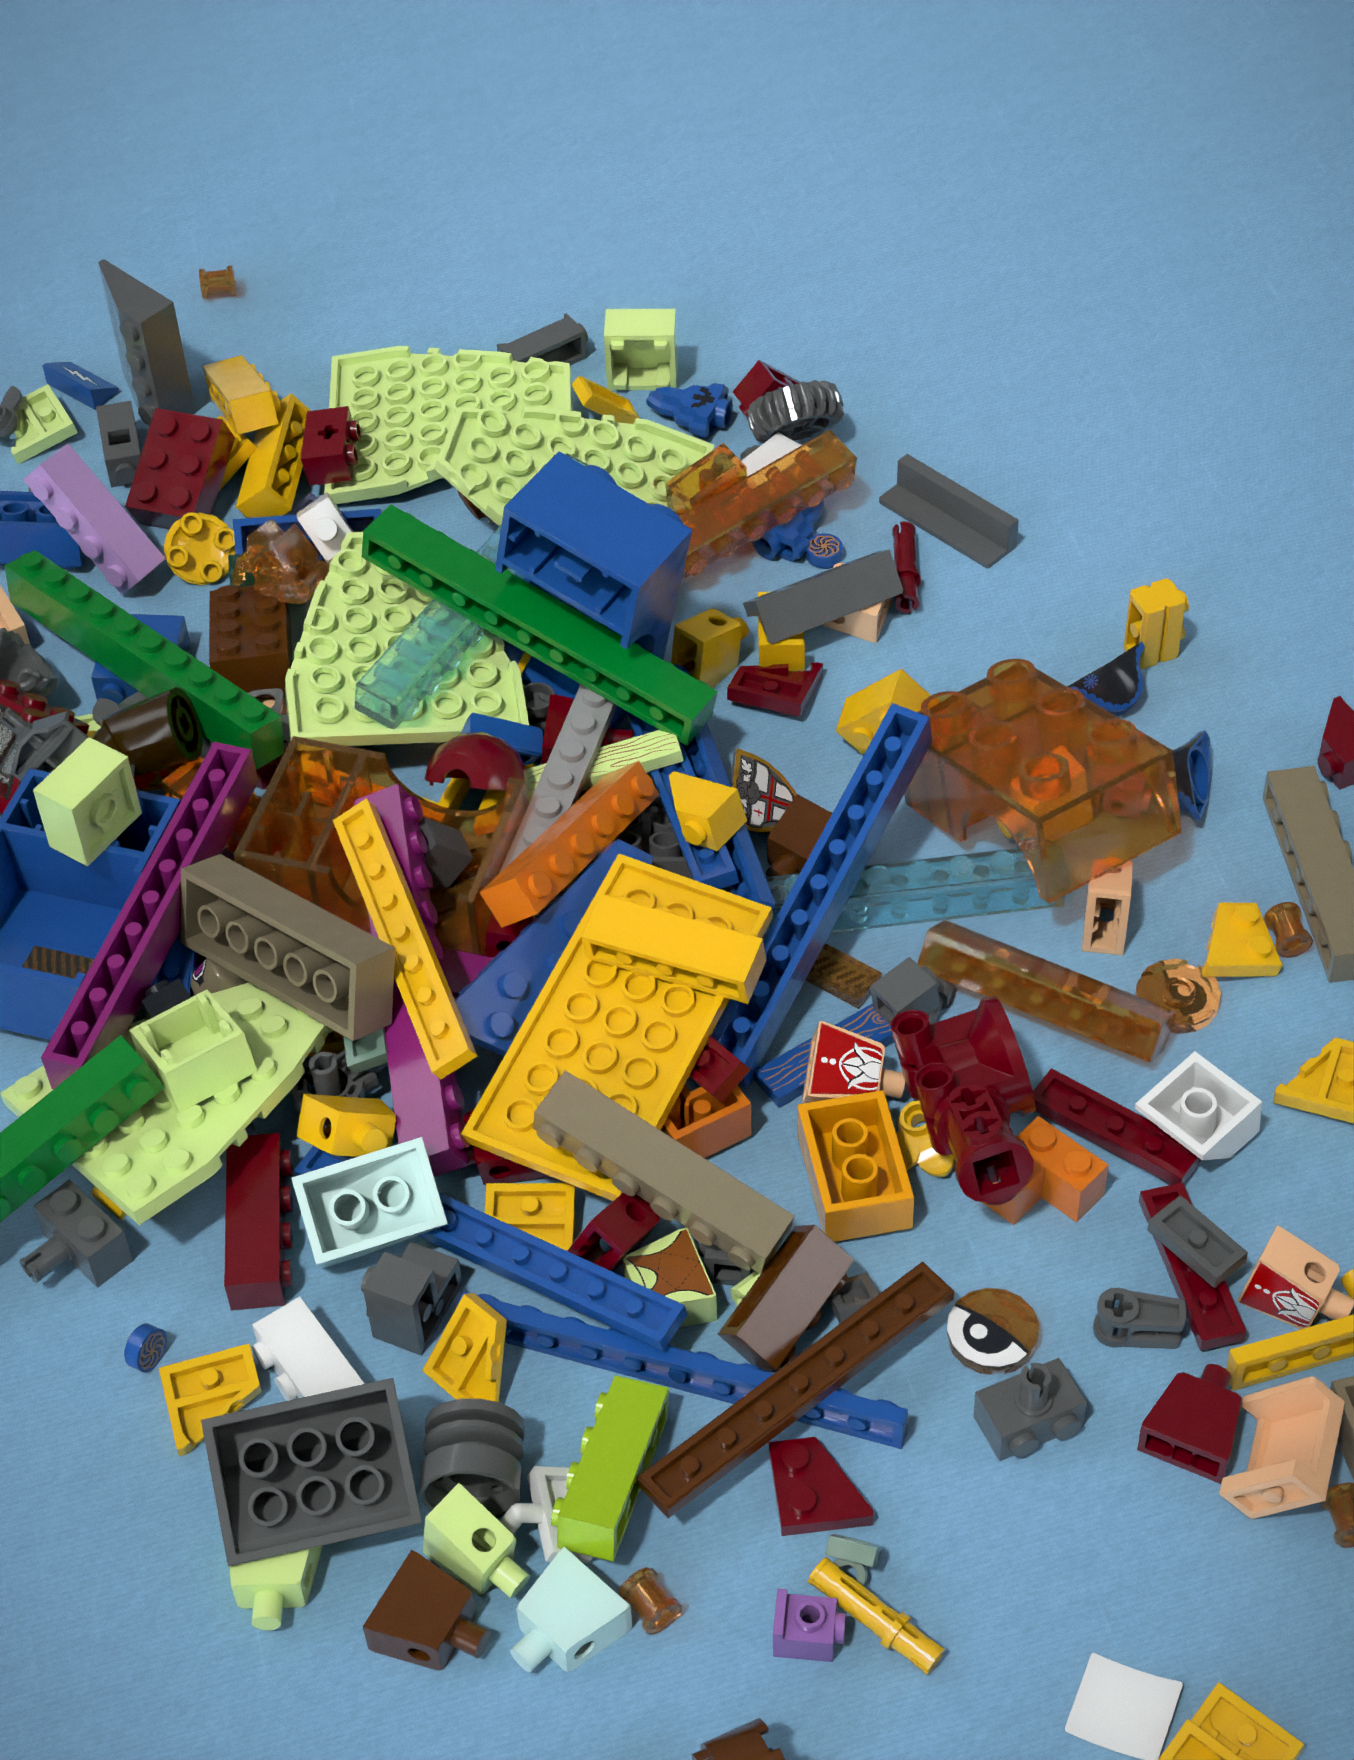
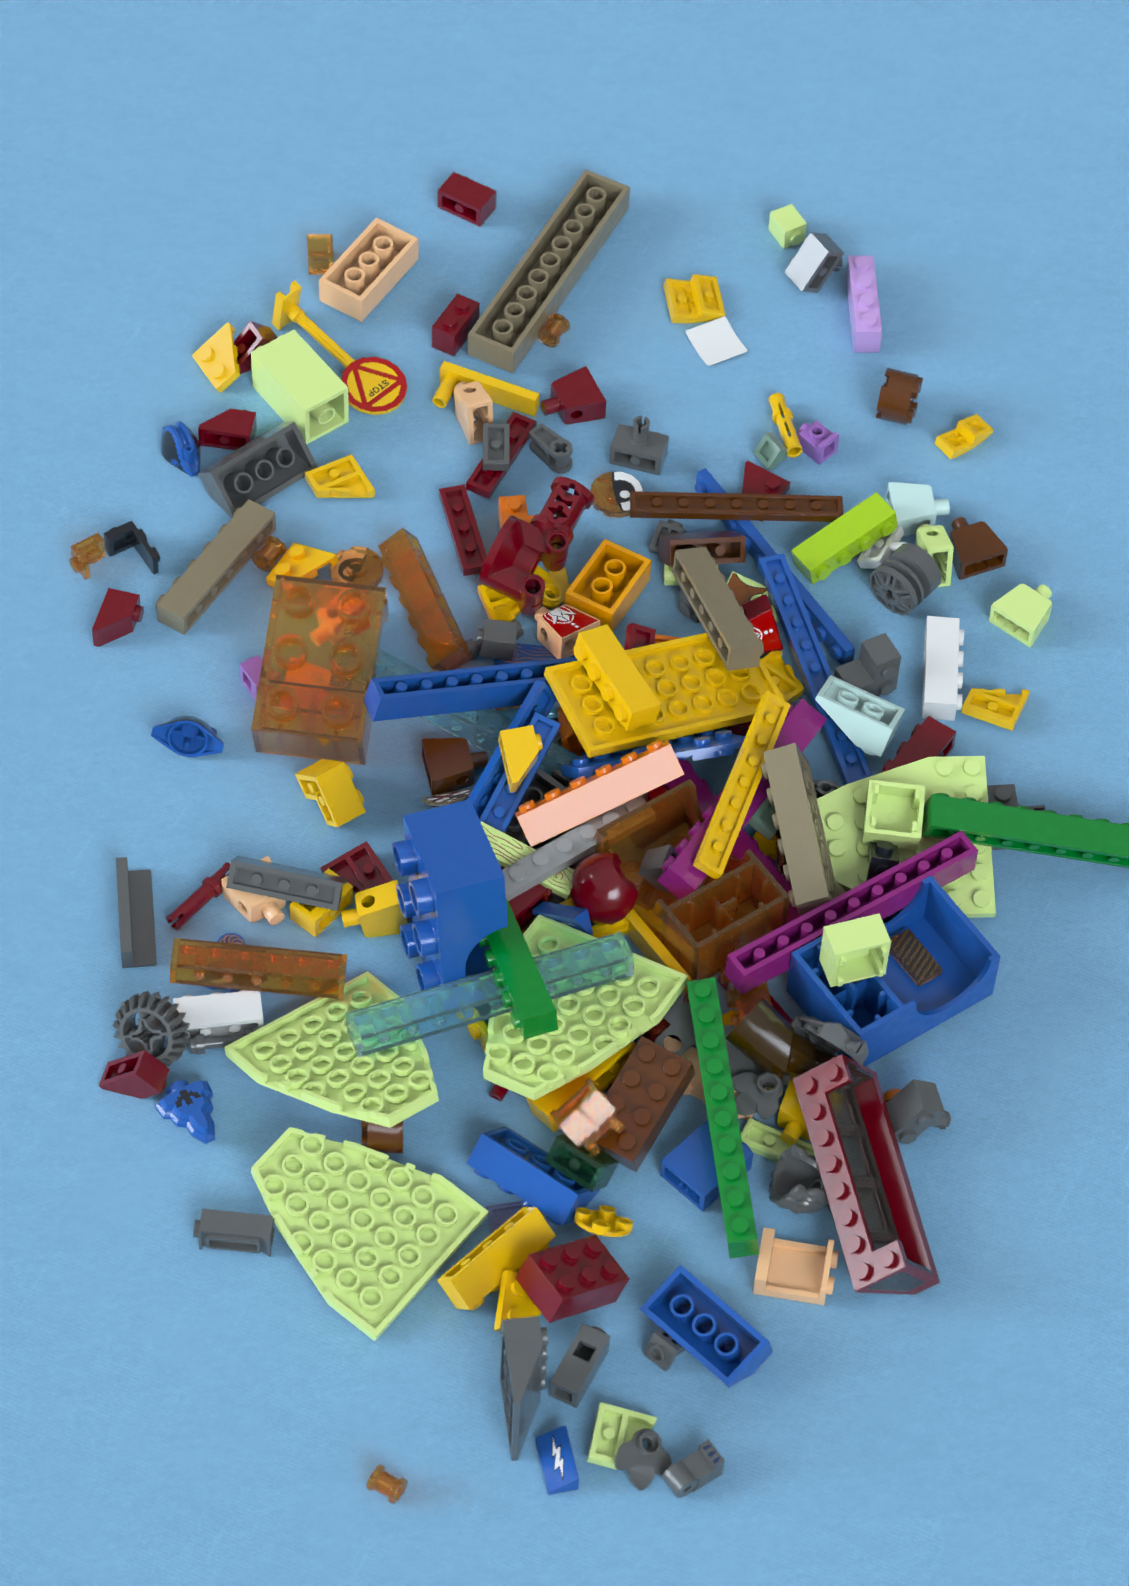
camera: 145 degrees left, 5 degrees up
(94, 518) = (669, 1252): lavender brick -> none
(145, 1347) = (1011, 744): blue tile -> none
(241, 394) = (478, 1318): yellow brick -> none
(311, 1471) = (982, 612): dark grey slope -> none
(324, 525) = (531, 1129): white torso -> none
(330, 445) = (458, 1229): dark red brick -> none
(355, 1128) = (835, 755): yellow torso -> none
(470, 1352) = (862, 624): yellow wing -> none
(604, 400) = (249, 1141): yellow tile -> none
(640, 349) = (185, 1162): yellowish green container -> none
(650, 1600) = (879, 486): clear orange bush -> none
(704, 479) = (277, 992): clear orange brick -> none
(1156, 620) = (127, 738): yellow brick -> none
(1193, 774) = (221, 659): blue hat -> none
(1203, 1109) = (426, 496): white slope -> none
(1289, 1449) = (558, 352): light nougat panel -> none

